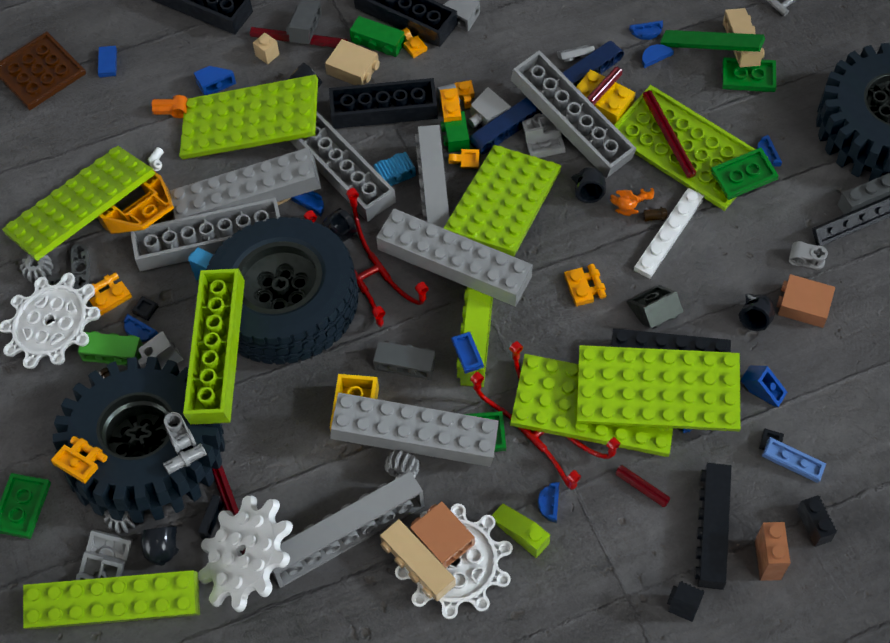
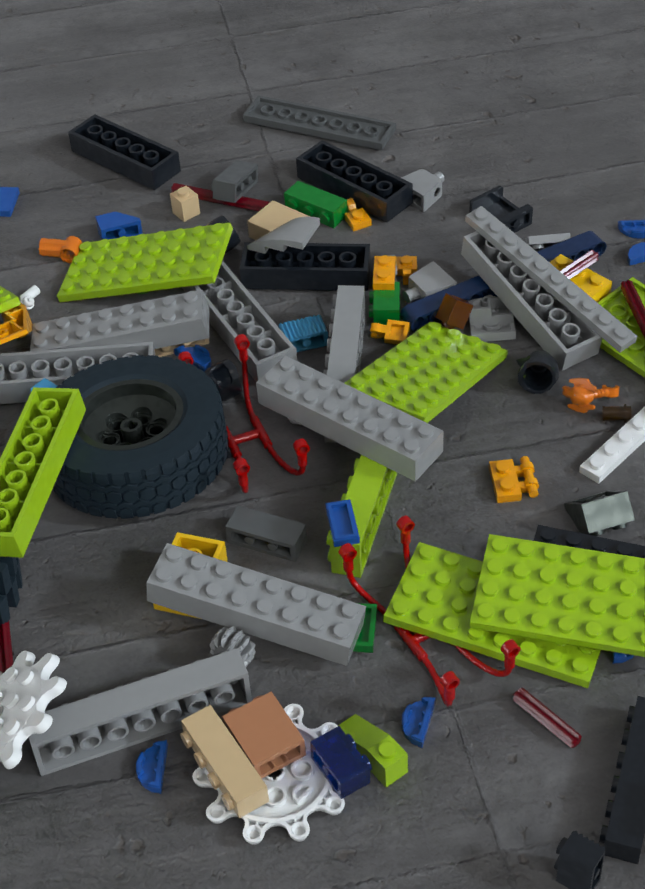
camera: 10 degrees right, 15 degrees down
(361, 568) = (151, 766): none -> blue tile
(365, 79) = (293, 234): none -> light grey slope
(503, 548) = (340, 761): none -> clear blue brick
(513, 135) = (454, 311): none -> reddish brown brick
(531, 28) = (504, 210): none -> black panel
(587, 100) = (551, 279): none -> light grey plate

